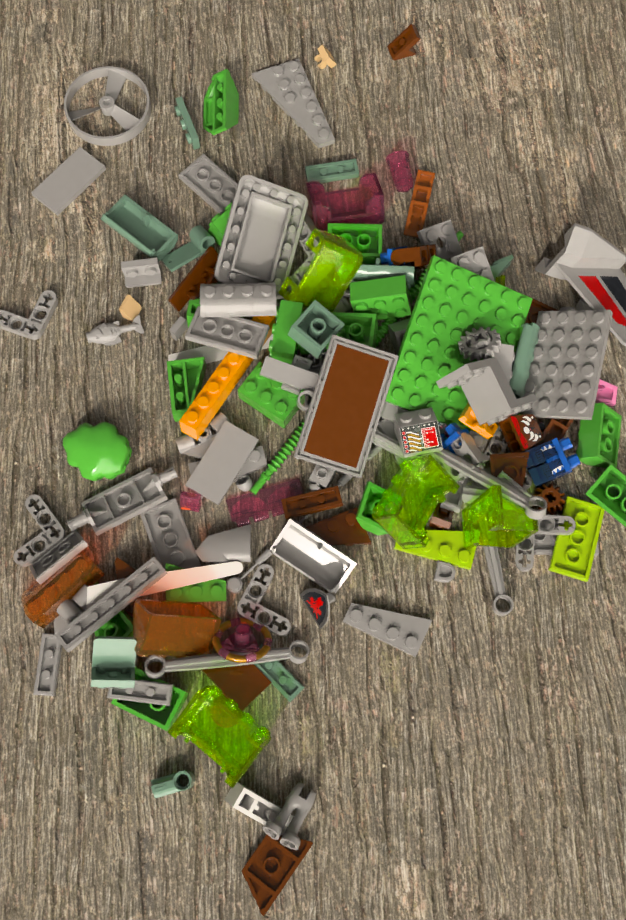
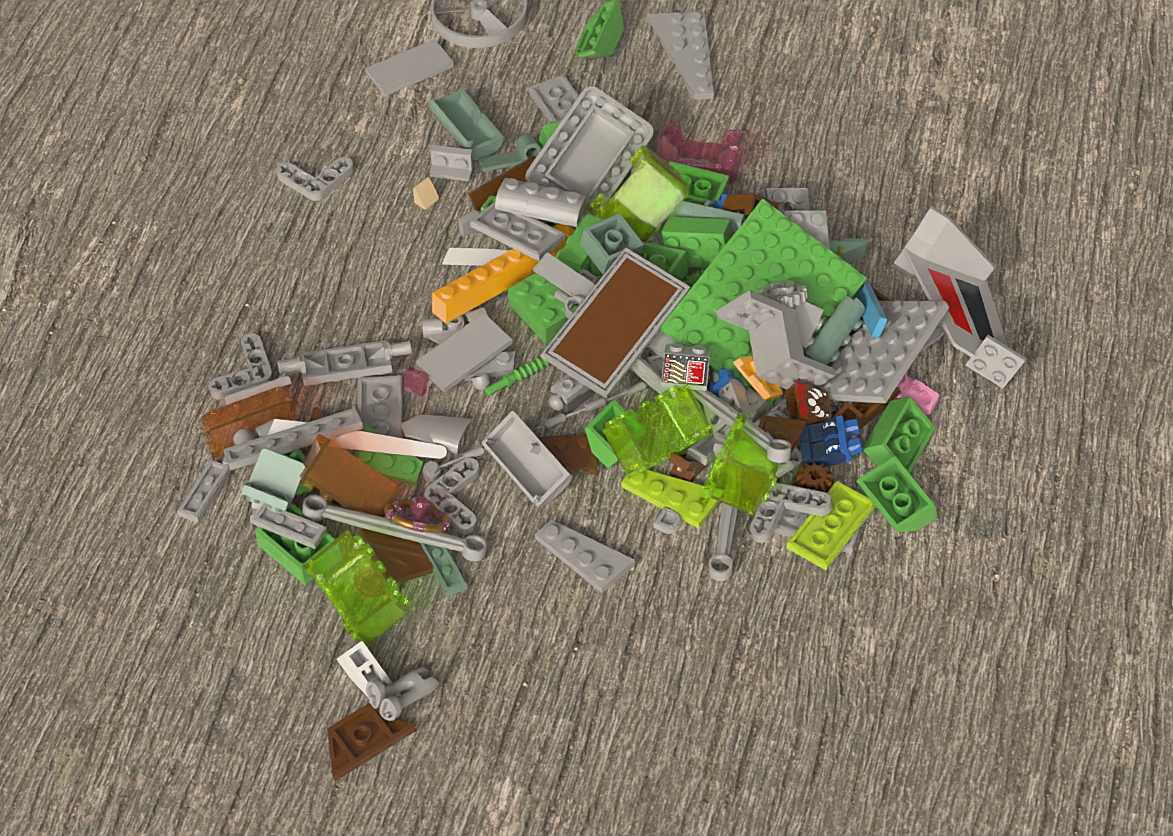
camera: 20 degrees right, 20 degrees down
(97, 451) = (337, 310): bright green piece -> none
(109, 333) = (394, 211): light grey animal -> none
(171, 783) = (289, 630): sand green piece -> none
(184, 383) = (454, 263): bright green wedge -> none
(186, 123) = (556, 43): sand green plate -> none
(265, 500) = (501, 404): clear pink windscreen -> none
(312, 502) = (548, 411): reddish brown plate -> none
(318, 604) = (512, 505): shield -> none
(326, 57) = (733, 16): tan tile -> none
(332, 171) = (699, 121): sand green plate -> none
(400, 170) = (774, 135): clear pink plant -> none
(403, 45) = (827, 23): reddish brown slope -> none
(419, 203) = (786, 168): dark orange slope -> none
(548, 331) = (874, 314): none -> dark azure tile

